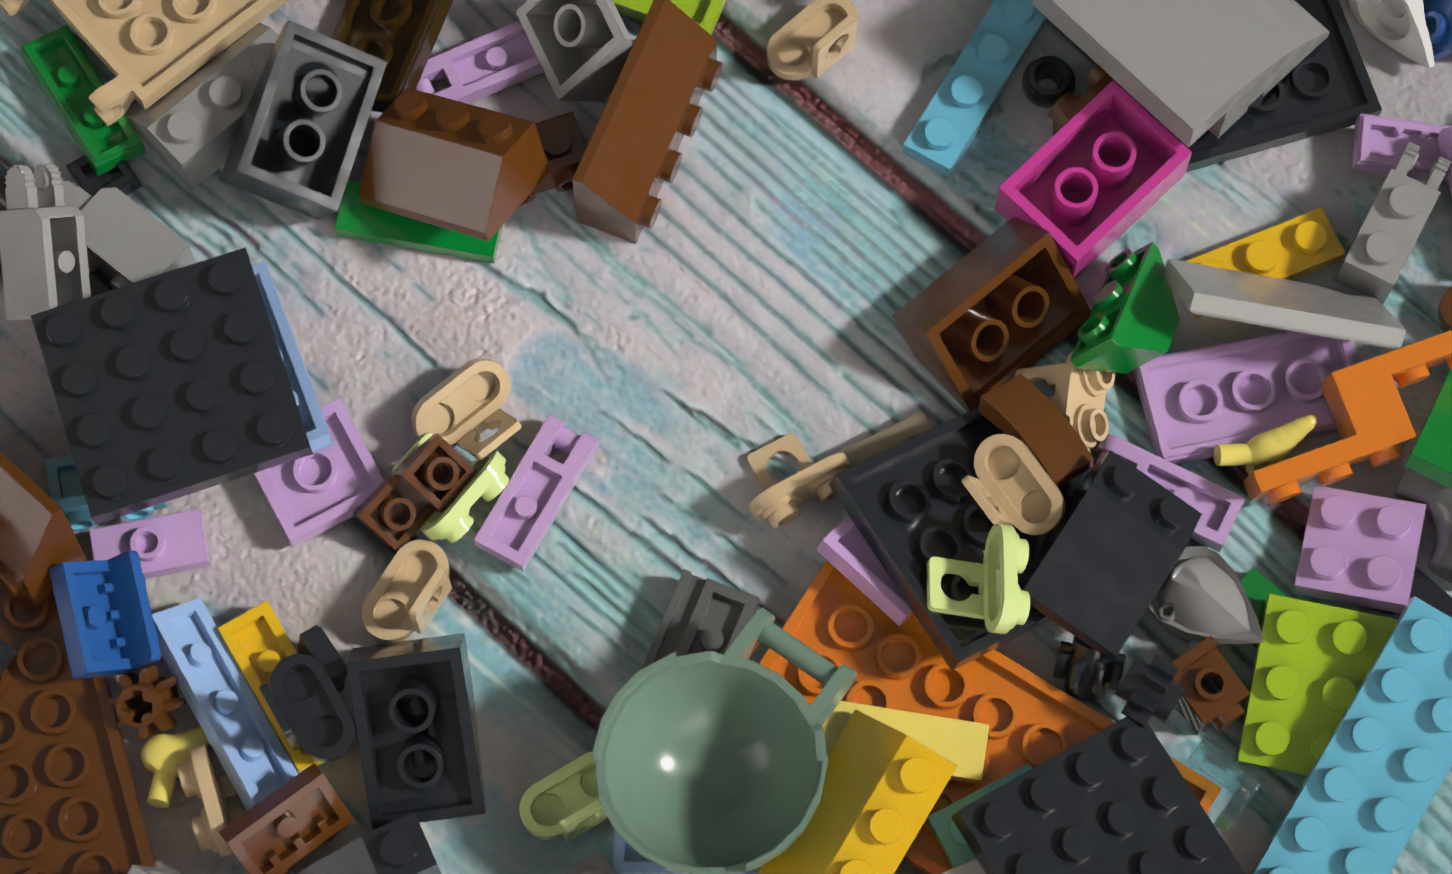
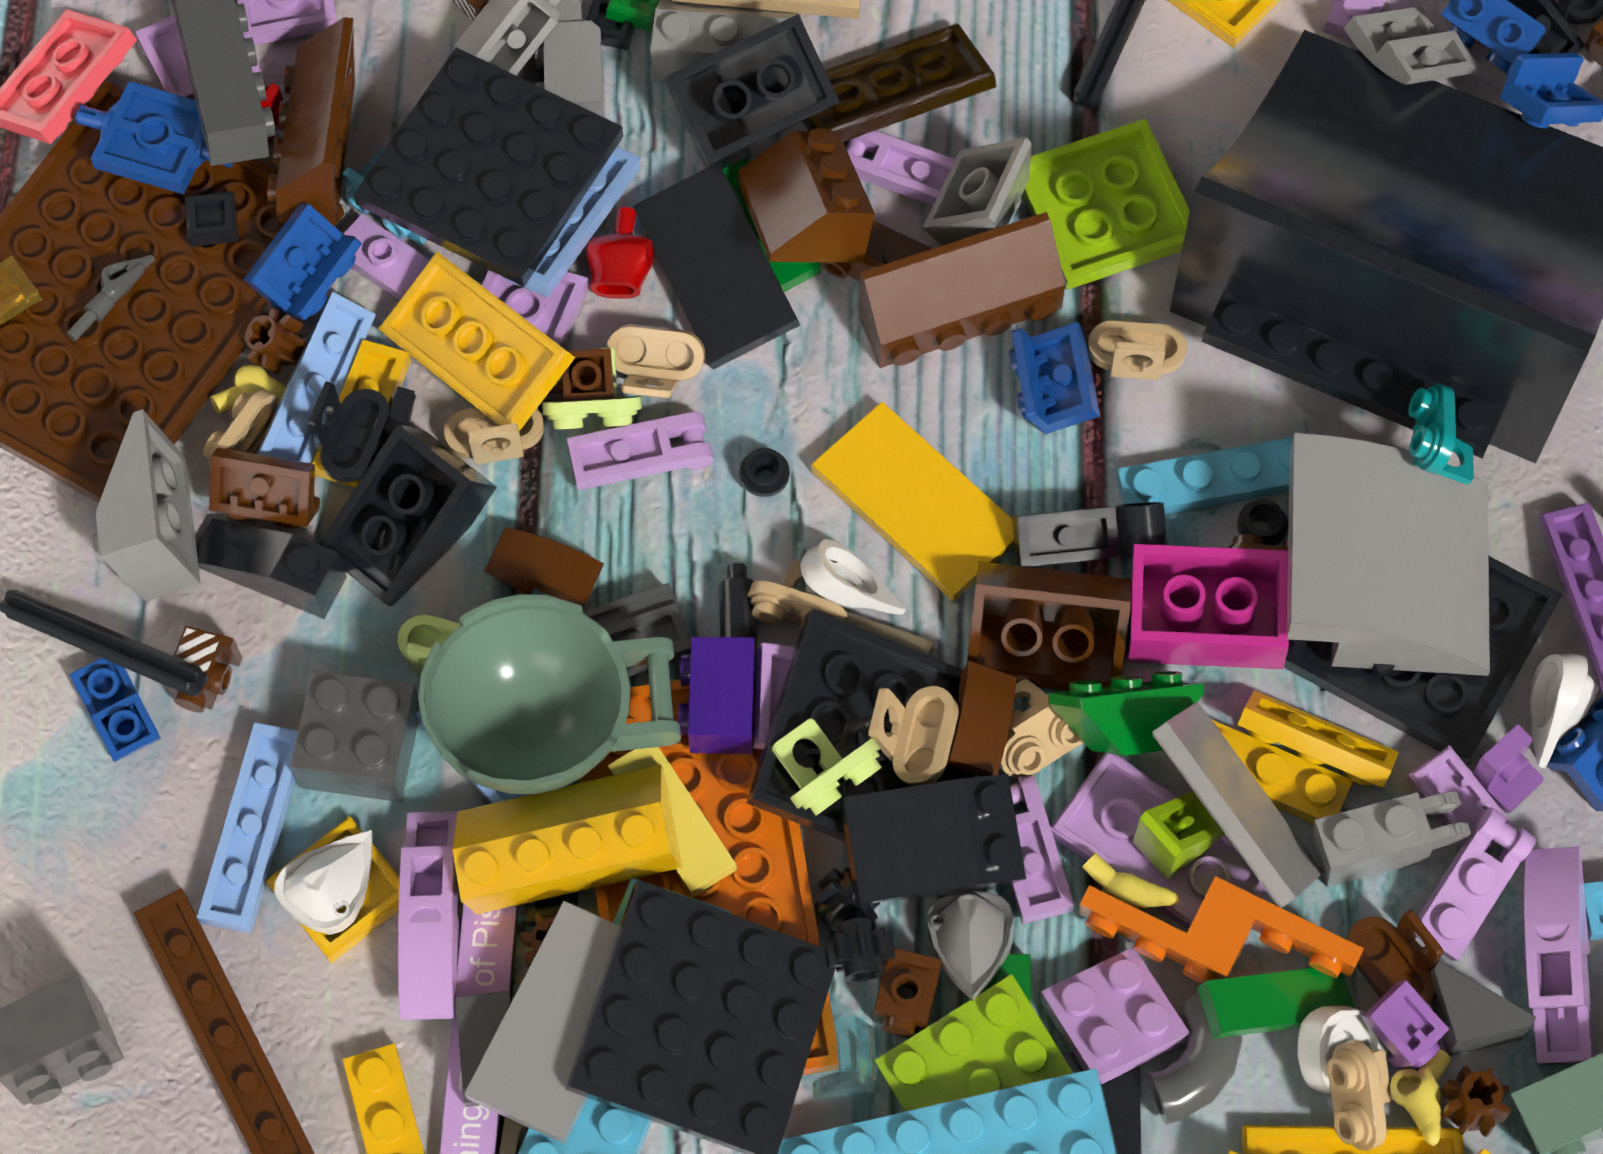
camera: 50 degrees right, 5 degrees down
(317, 538) = (476, 343): none -> yellow tile
(345, 358) = (619, 260): none -> red piece
(424, 287) = (716, 265): none -> black tile
(571, 655) = (540, 563): none -> reddish brown slope
(649, 396) = (764, 460): none -> black plate
(760, 542) = (735, 606): none -> black cylinder
(782, 118) = (1054, 377): none -> blue bracket
(785, 317) = (916, 500): none -> yellow tile
(808, 431) = (845, 579): none -> white piece
(832, 610) = (720, 695): none -> dark purple brick
(944, 212) = (1087, 533): none -> black plate
(1260, 370) = (1176, 833): none -> lime slope
(1267, 202) = (1317, 740): none -> yellow plate
(1415, 91) = (1507, 772): none -> medium lavender bracket

